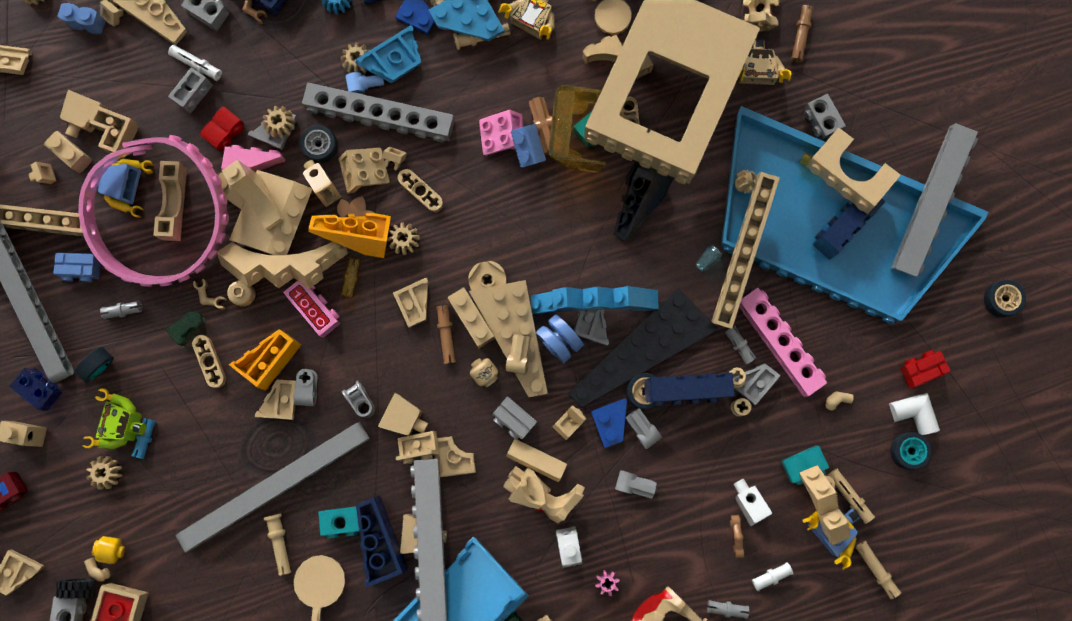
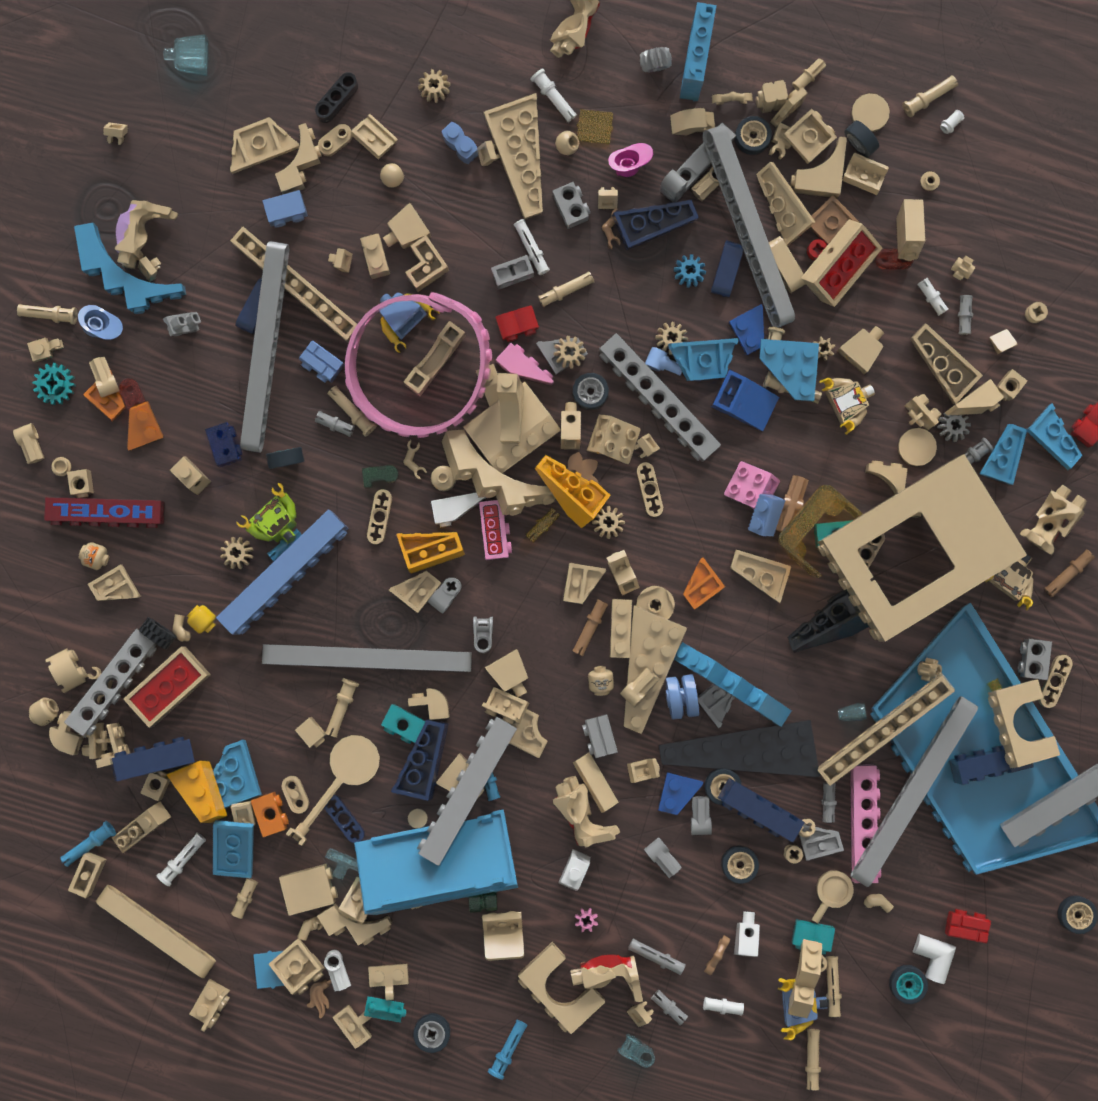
camera: 30 degrees right, 5 degrees up
(41, 79) = (391, 175): none -> tan piece
(136, 291) = (357, 417): none -> tan pin
(152, 464) = (282, 572): none -> medium blue brick
(243, 80) = (566, 289): none -> tan pin
(266, 583) = (311, 732): none -> tan brick
(267, 311) = (453, 508): none -> white slope
(355, 483) = (436, 701): none -> tan brick
(406, 594) = (417, 818): none -> tan tile
(441, 270) = (622, 572): none -> tan brick
(449, 68) = (745, 400): none -> blue slope
(451, 525) = (491, 788): none -> dark azure pin
(515, 238) = (702, 585): none -> orange wing
(557, 196) = (762, 573): none -> tan wing
(687, 573) = (656, 956): none -> light grey pin
(711, 453) = (741, 874): none -> wheel
(795, 415) = (834, 891): none -> tan piece
(804, 288) = (914, 791): none -> light grey beam
(860, 137) = (1056, 666): none -> tan beam

